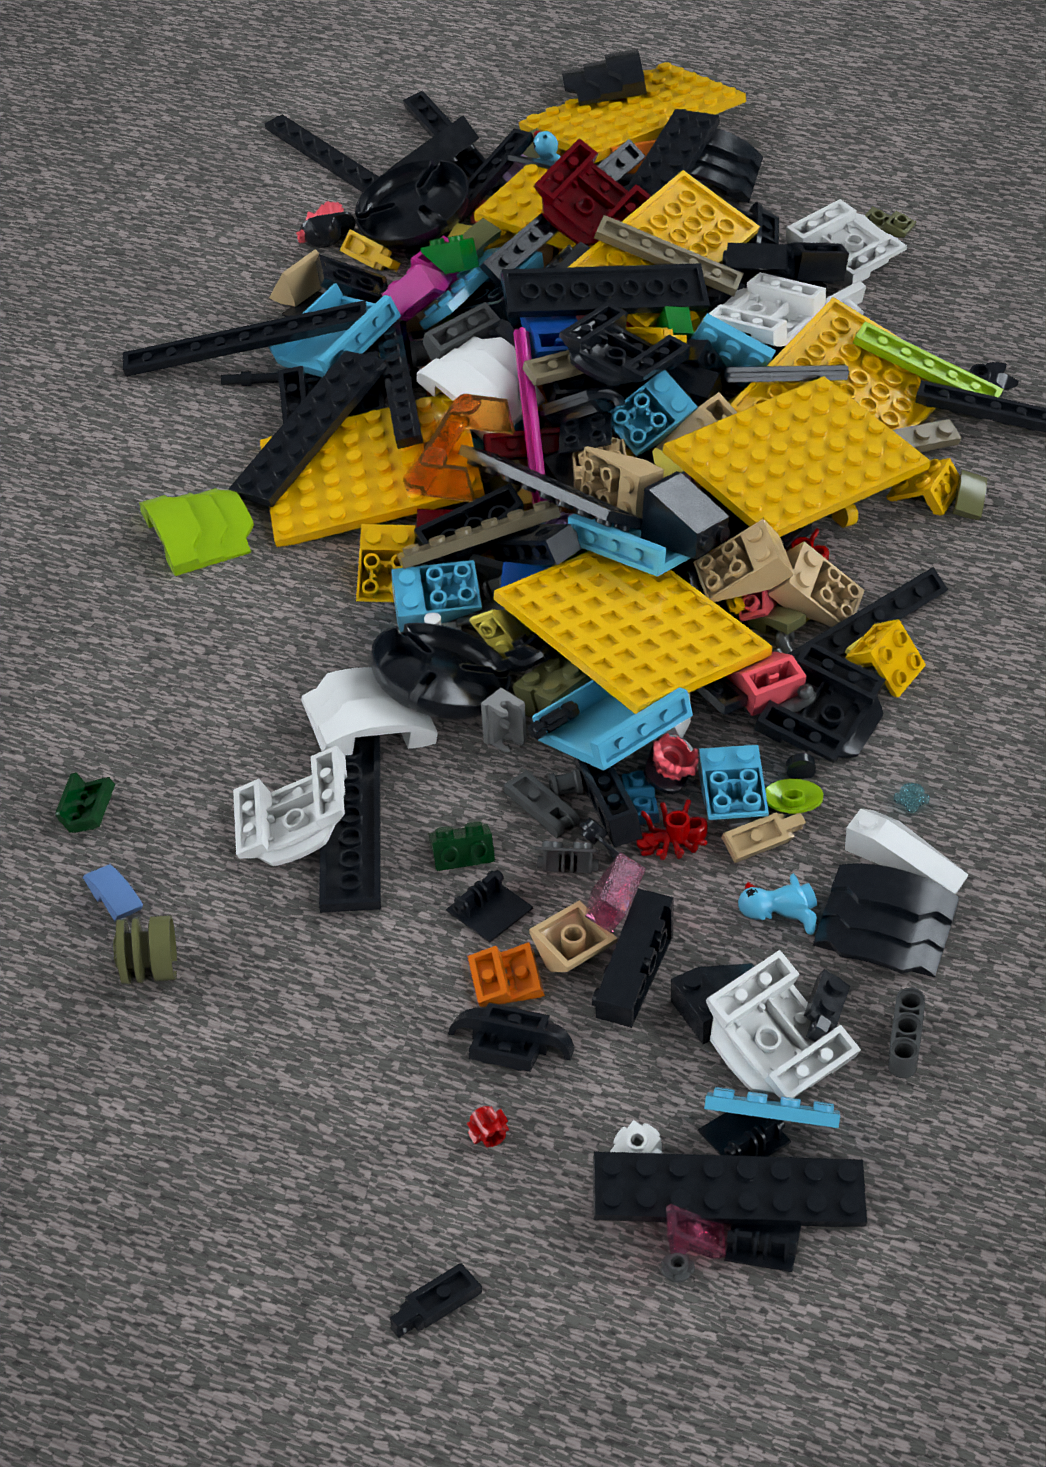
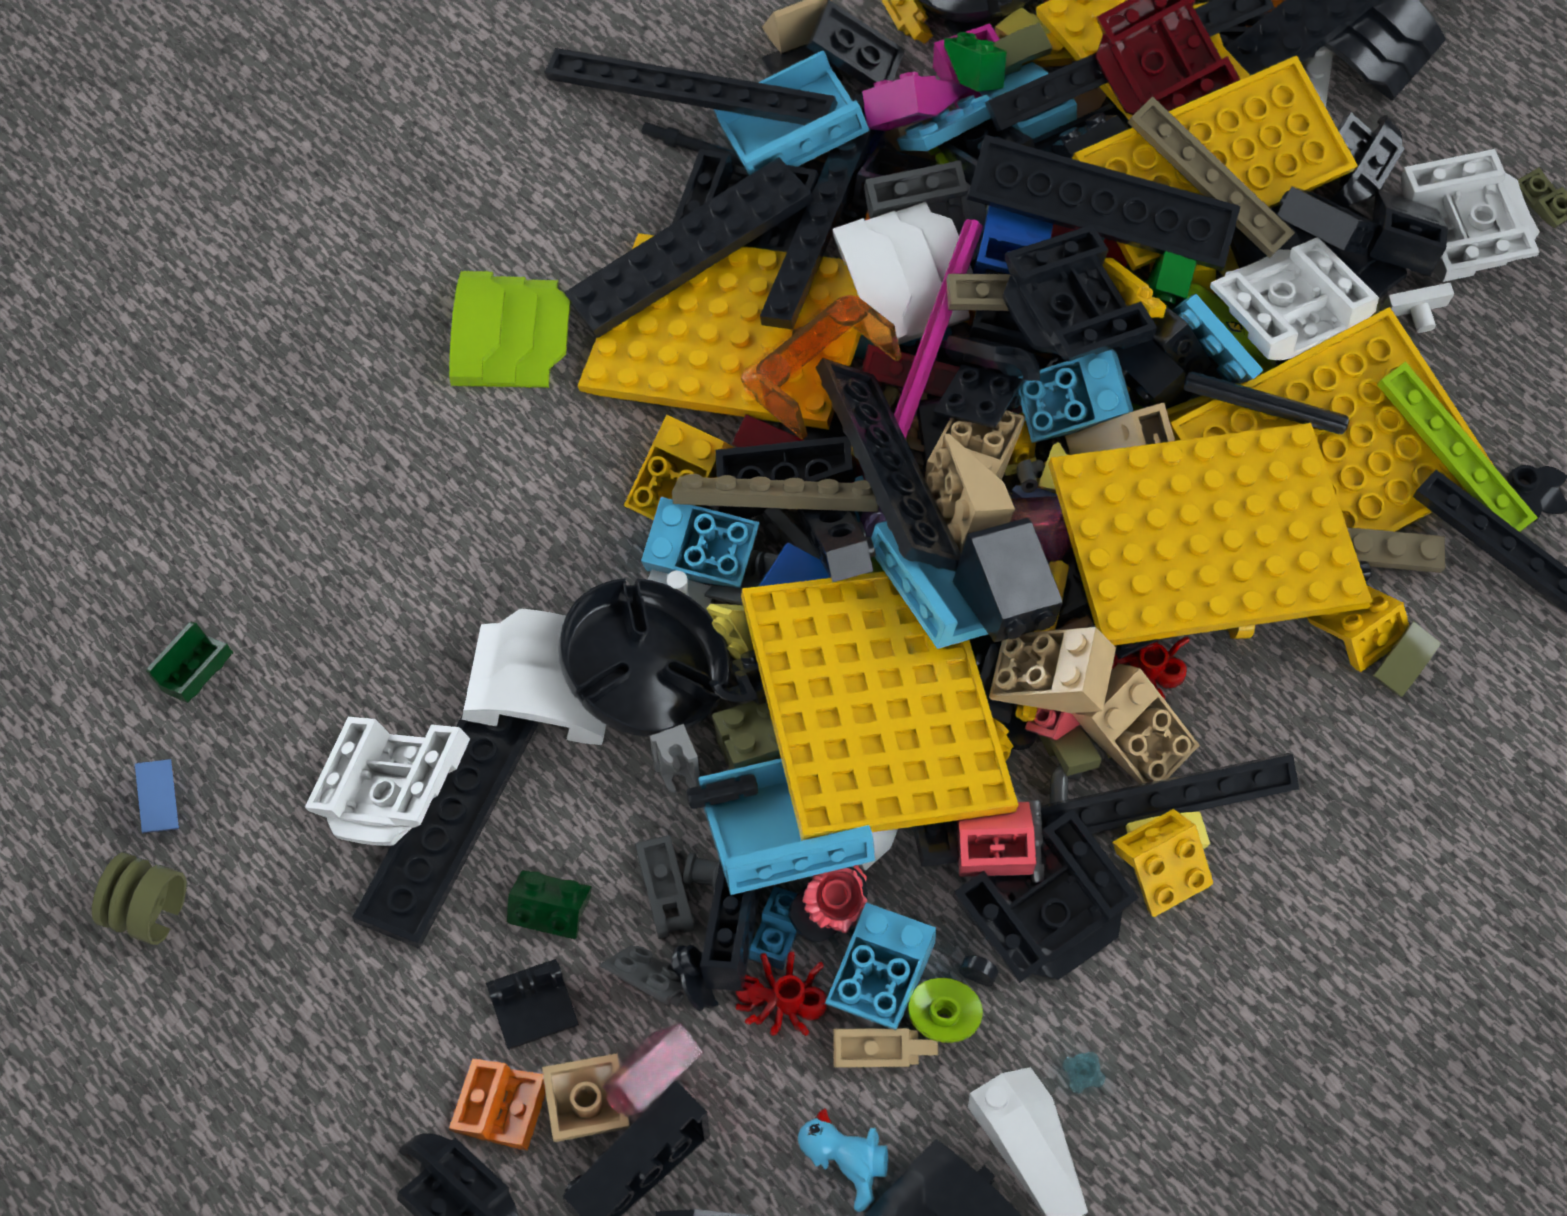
camera: 25 degrees right, 15 degrees up
(804, 698) = (1027, 882): dark grey arm -> none

